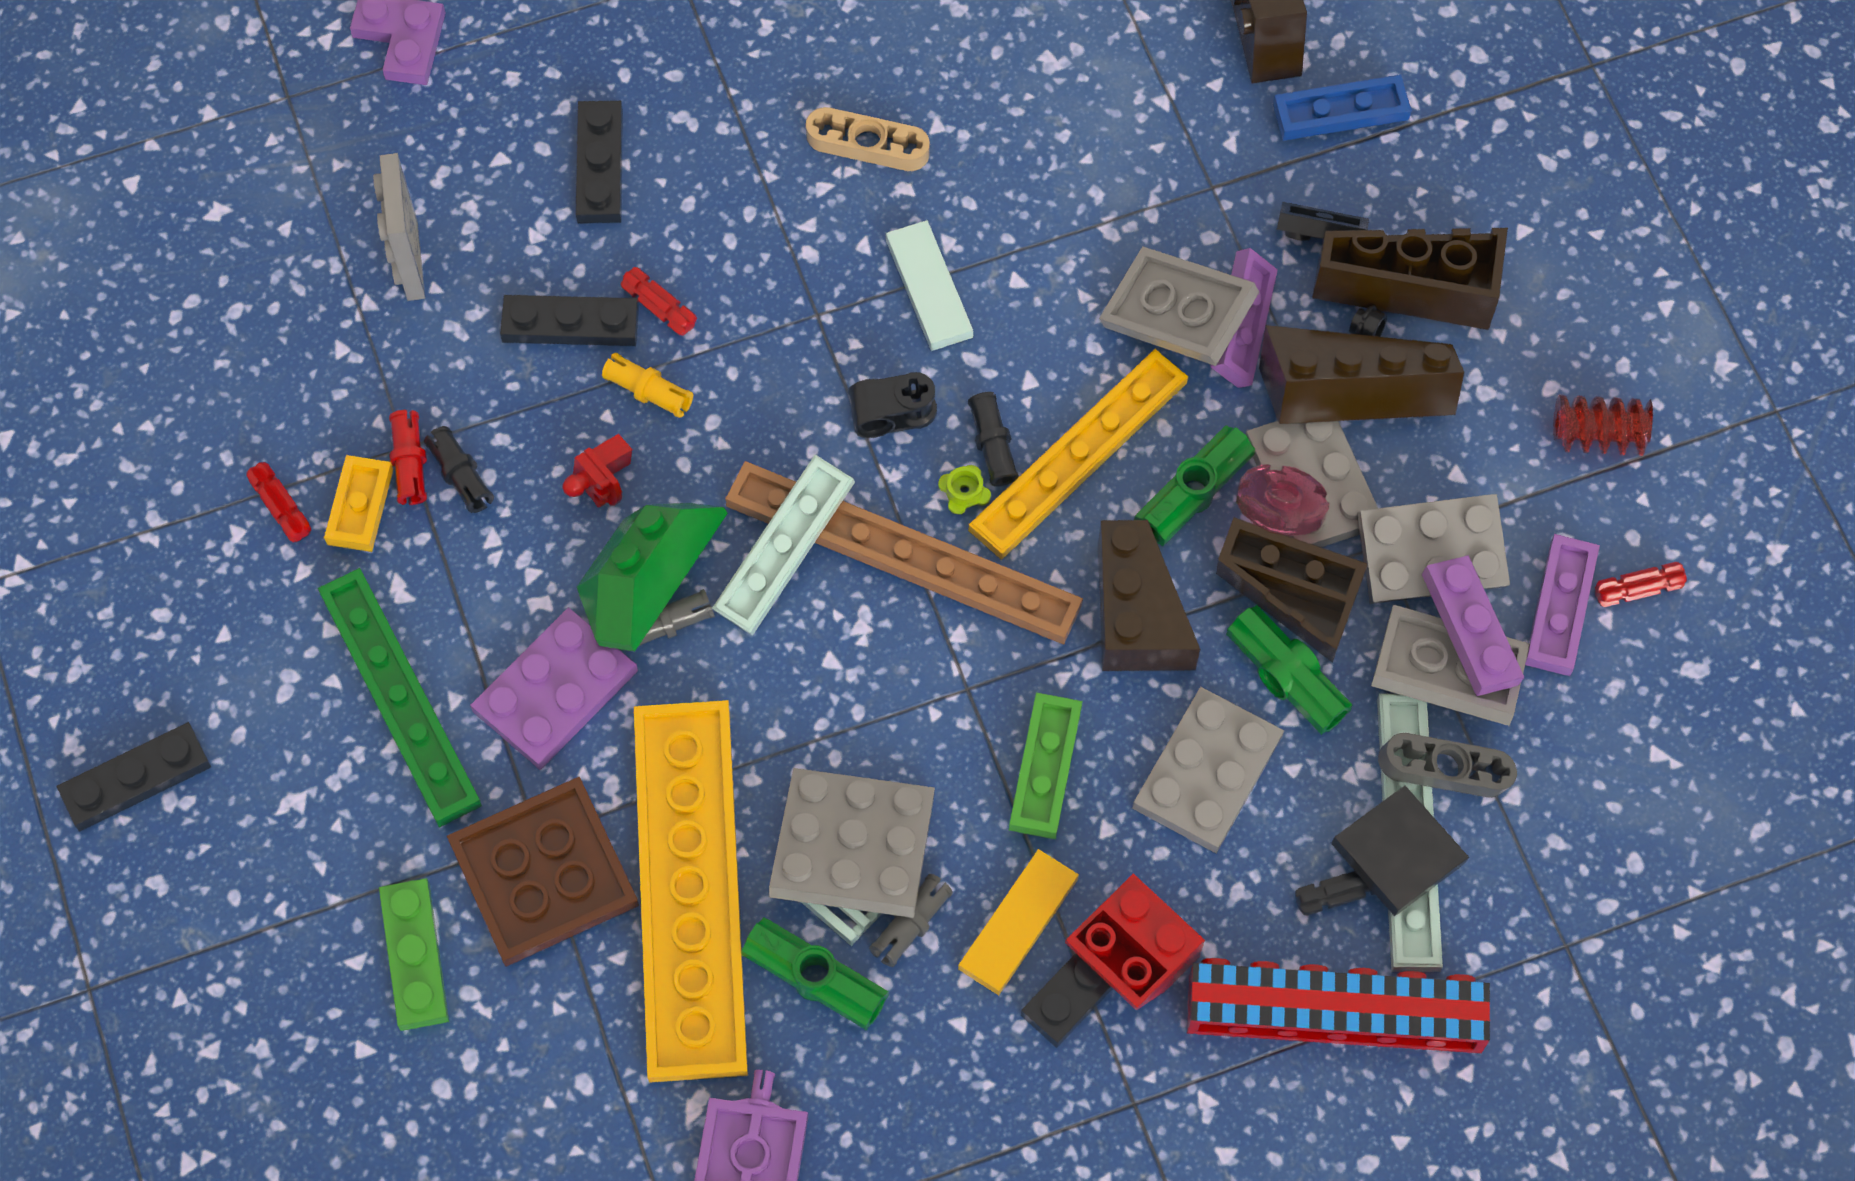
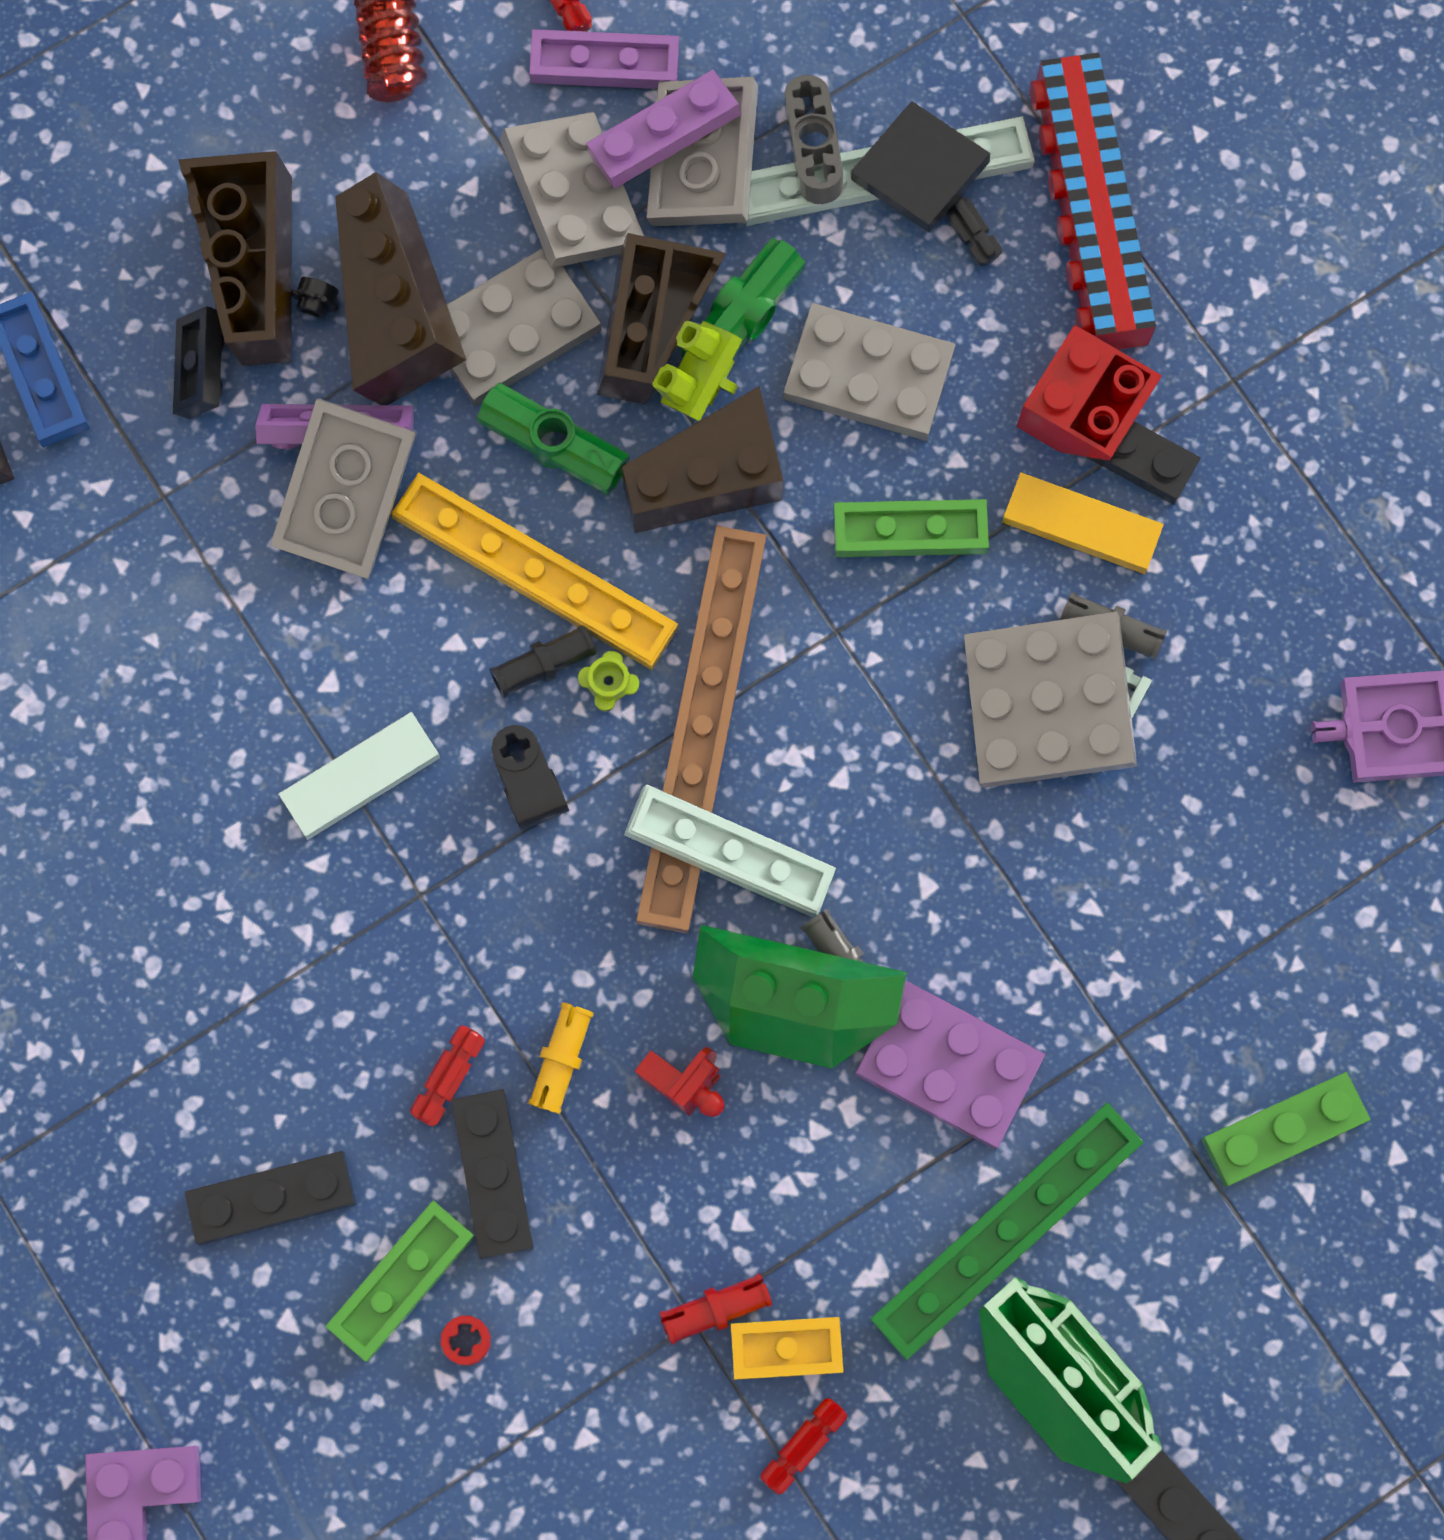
camera: 105 degrees left, 10 degrees up
(259, 709) = (1067, 1381): none -> green wedge
(399, 227) = (423, 1398): light grey plate -> none
(440, 262) = (452, 1329): none -> red bush
(459, 469) = (716, 1245): black pin -> none
(504, 236) = (400, 1281): none -> bright green plate
(542, 871) = (1163, 1016): reddish brown plate -> none
(689, 892) = (1138, 858): yellow plate -> none
(789, 956) = (1191, 734): green piece -> none
(877, 154) = (195, 851): tan beam -> none
(1221, 606) = (701, 371): none -> lime hips
(1282, 500) = (566, 334): clear pink tile -> none

